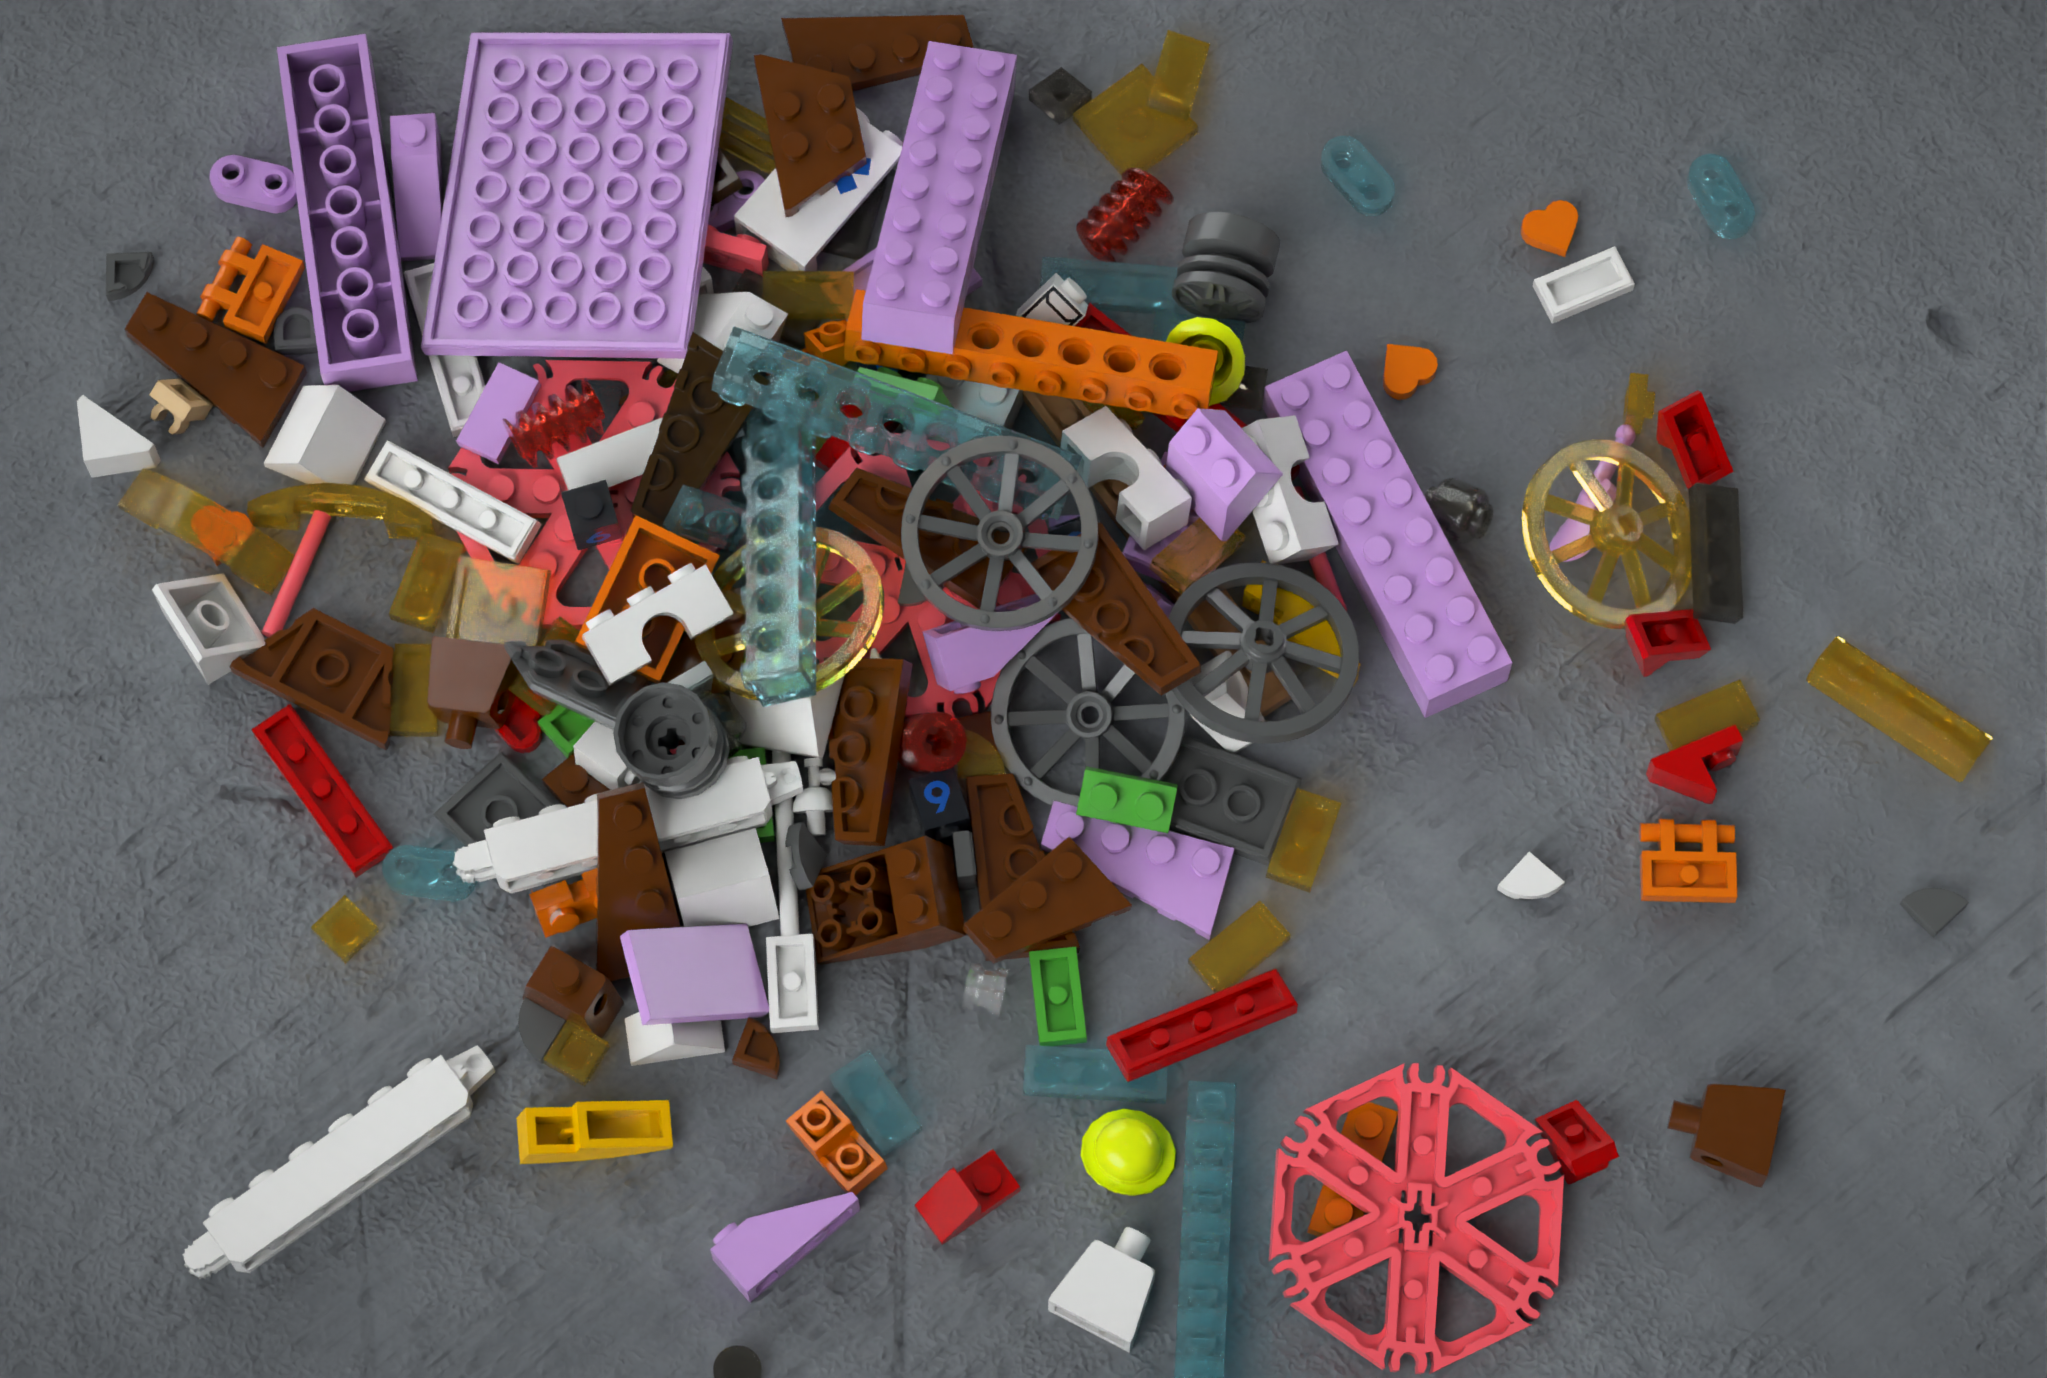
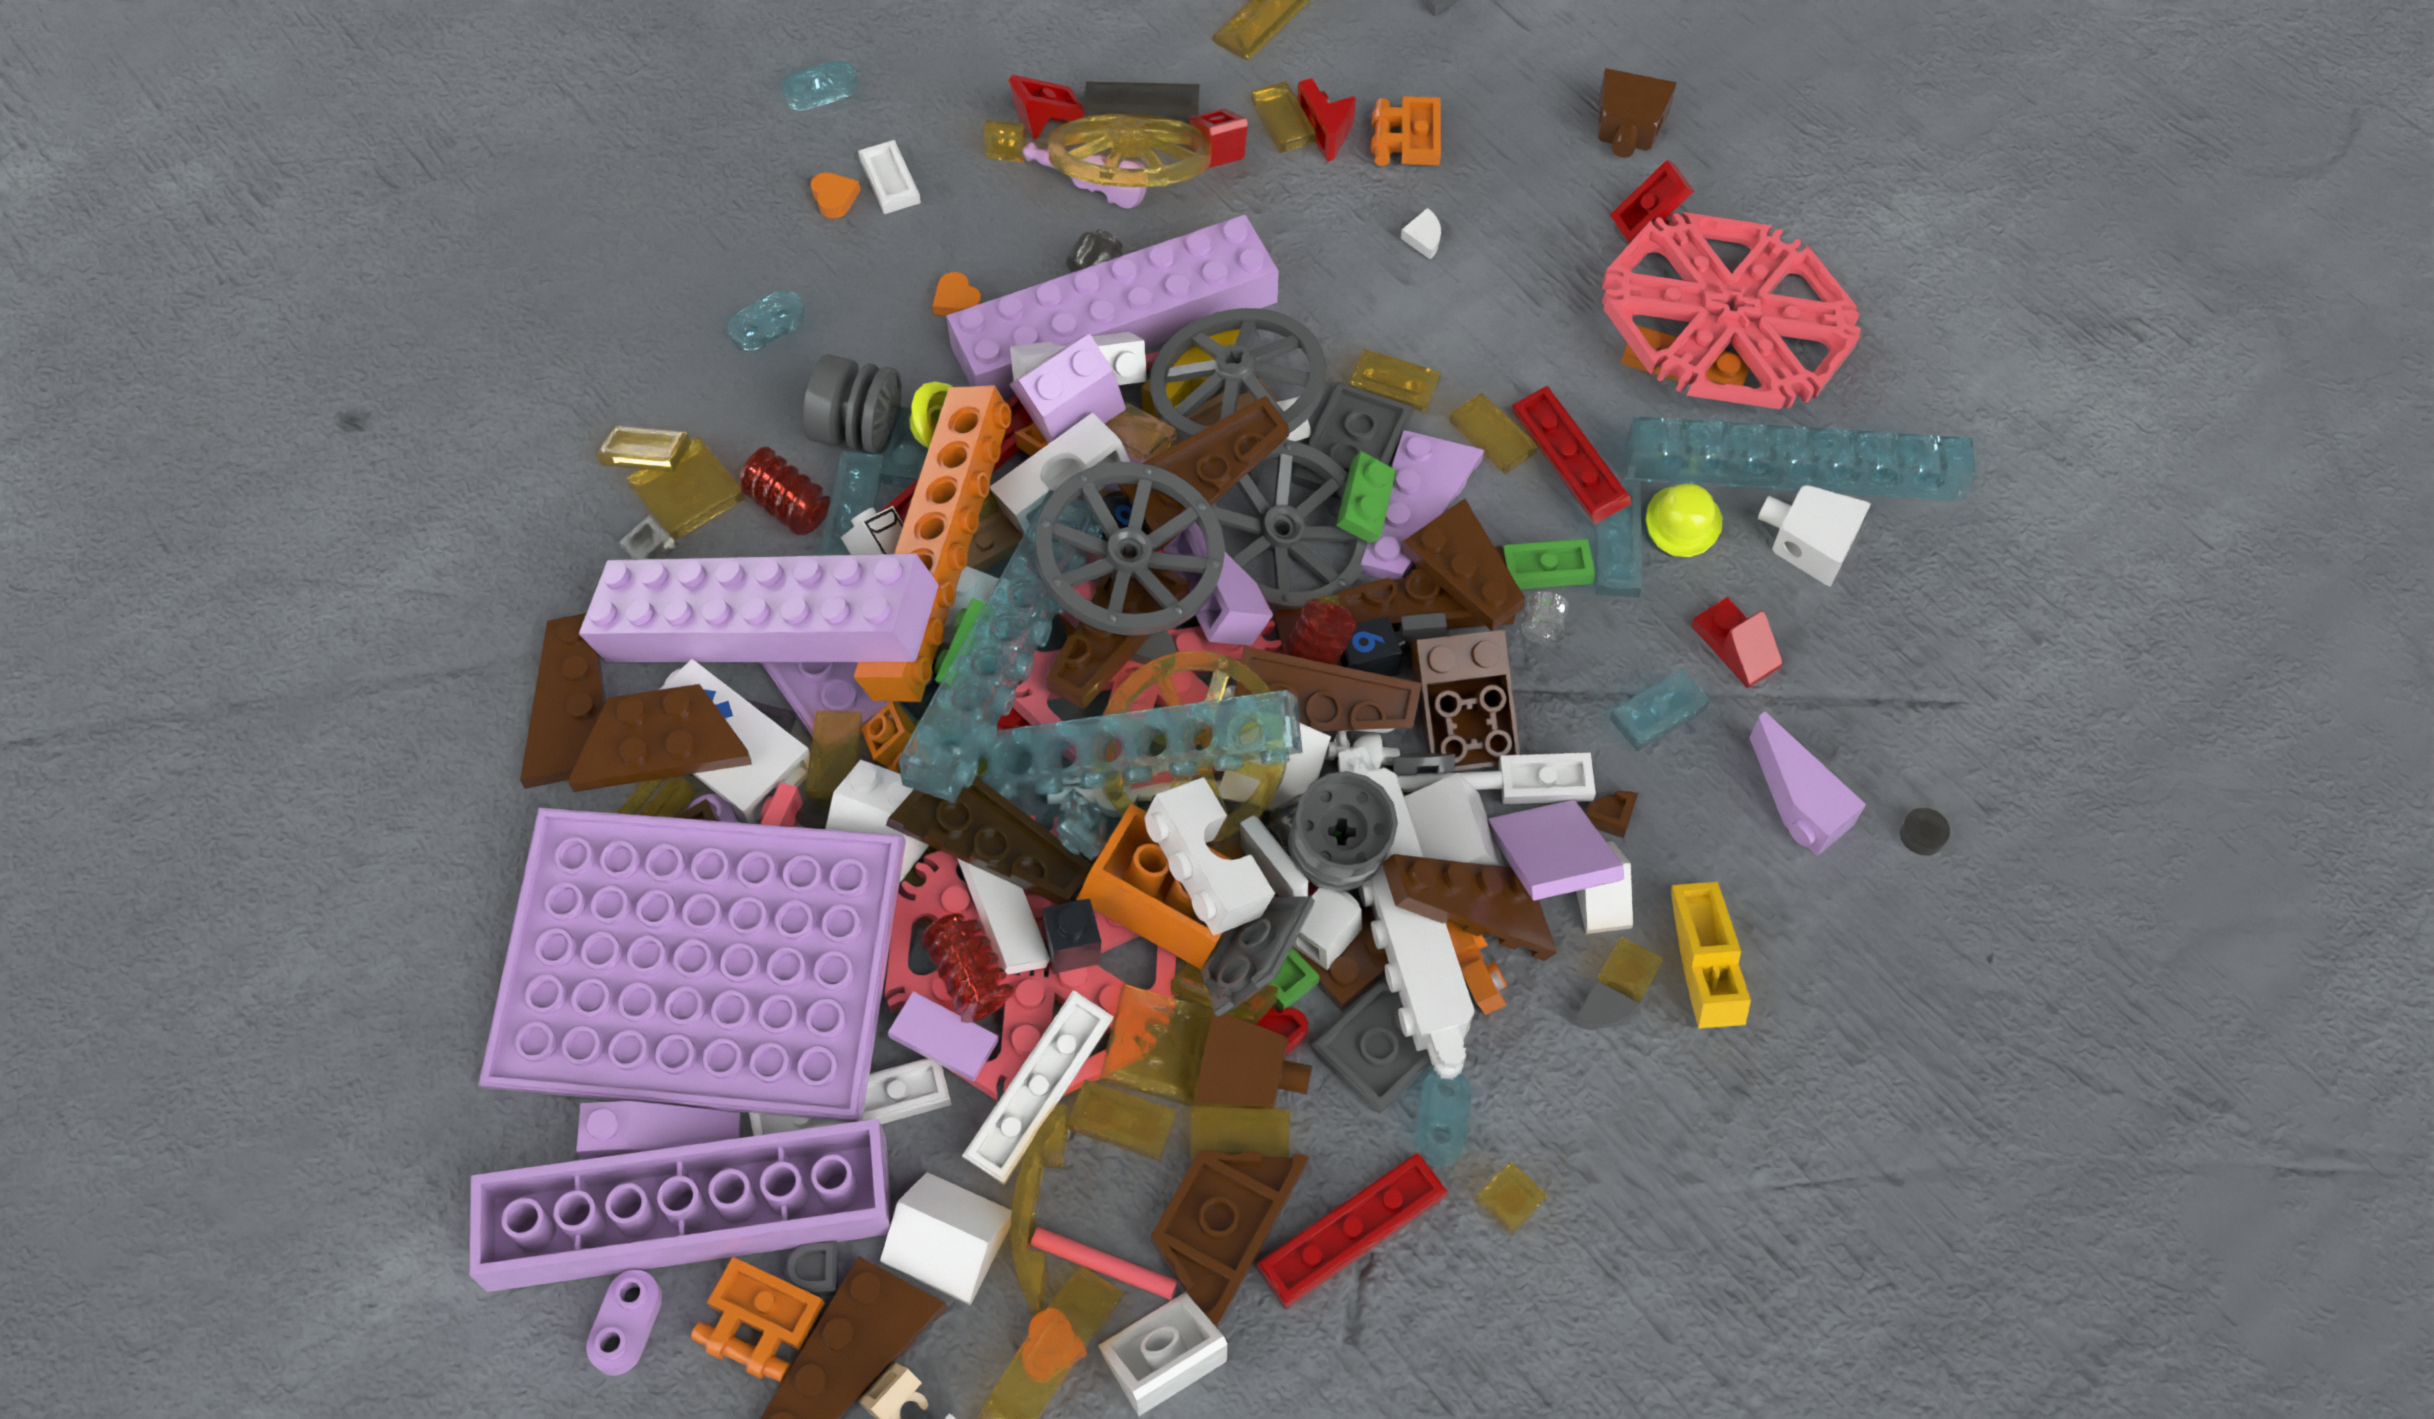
camera: 90 degrees left, 10 degrees down
(340, 1165) = (1774, 1200): white hinge -> none
(573, 990) = (1576, 964): reddish brown torso -> none
(836, 1144) = (1700, 745): orange slope -> none

